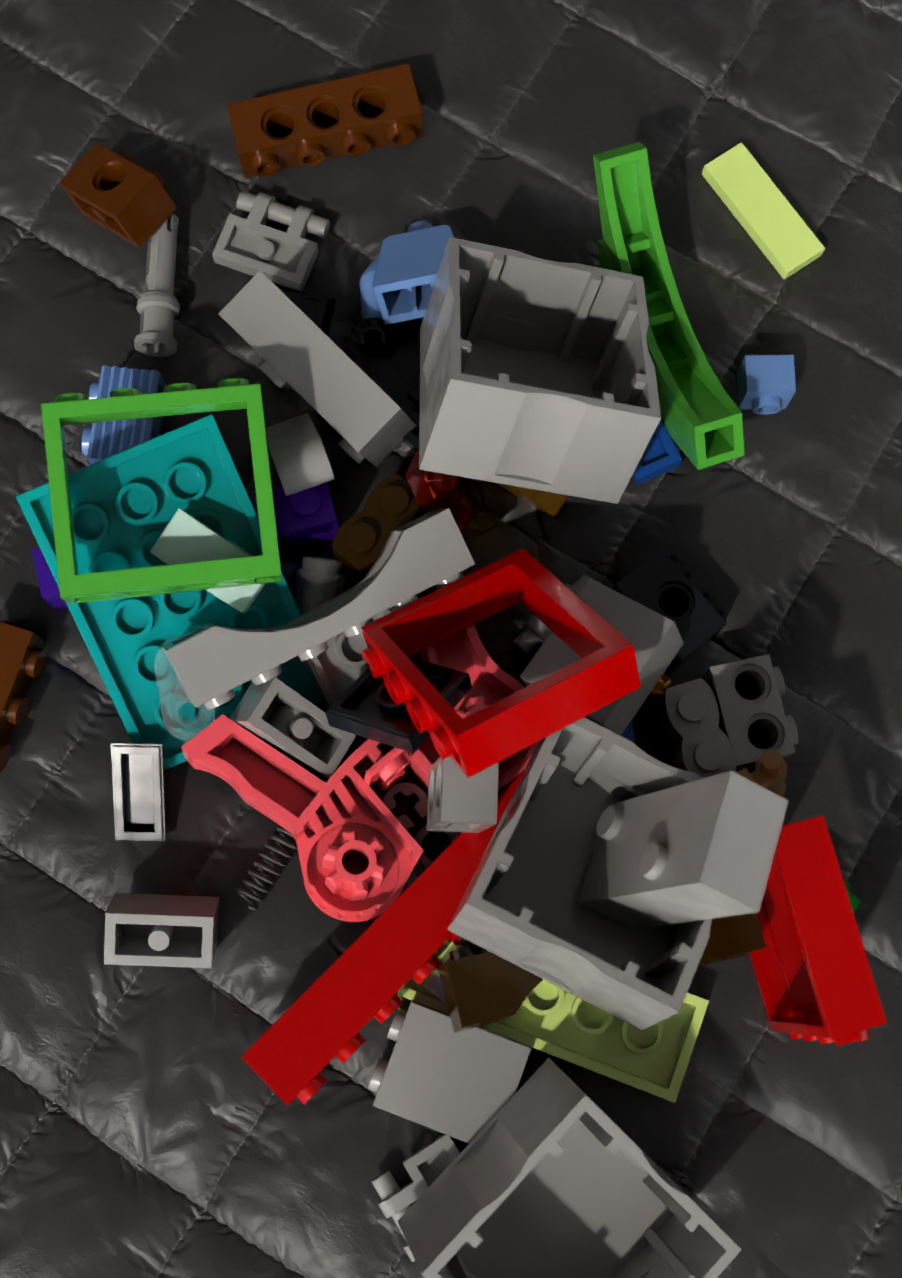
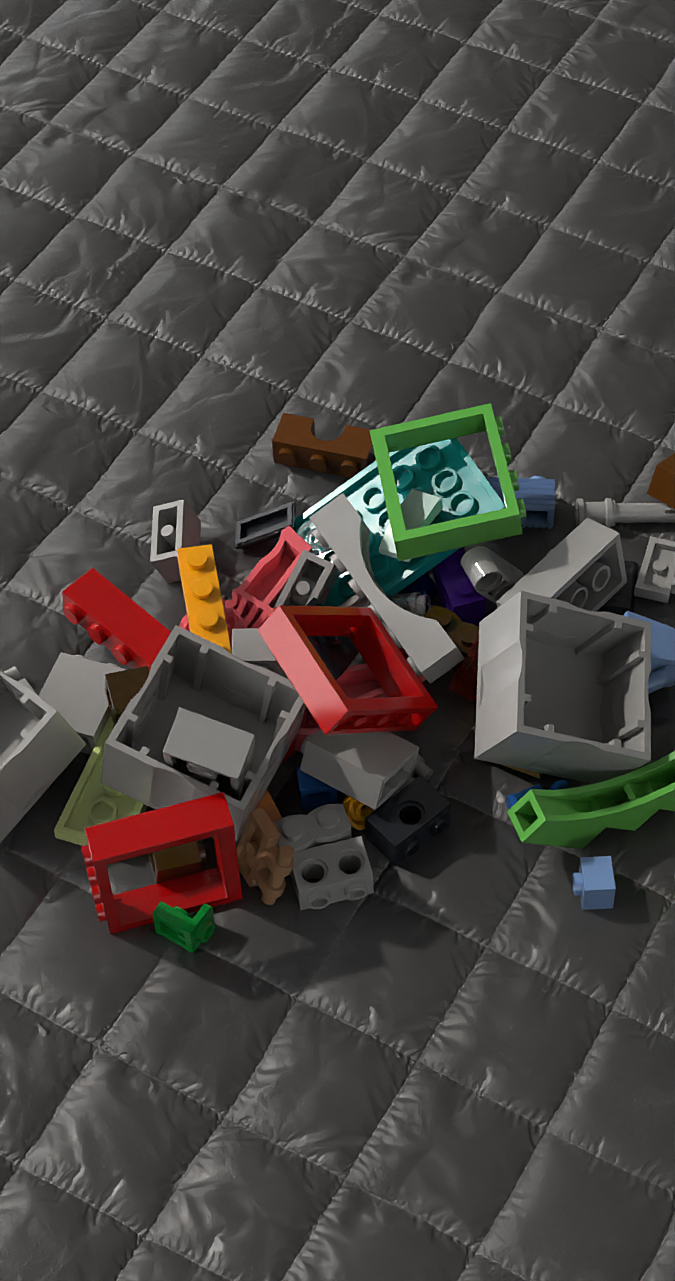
camera: 90 degrees right, 25 degrees down
(356, 872) = (203, 594): none -> light orange plate

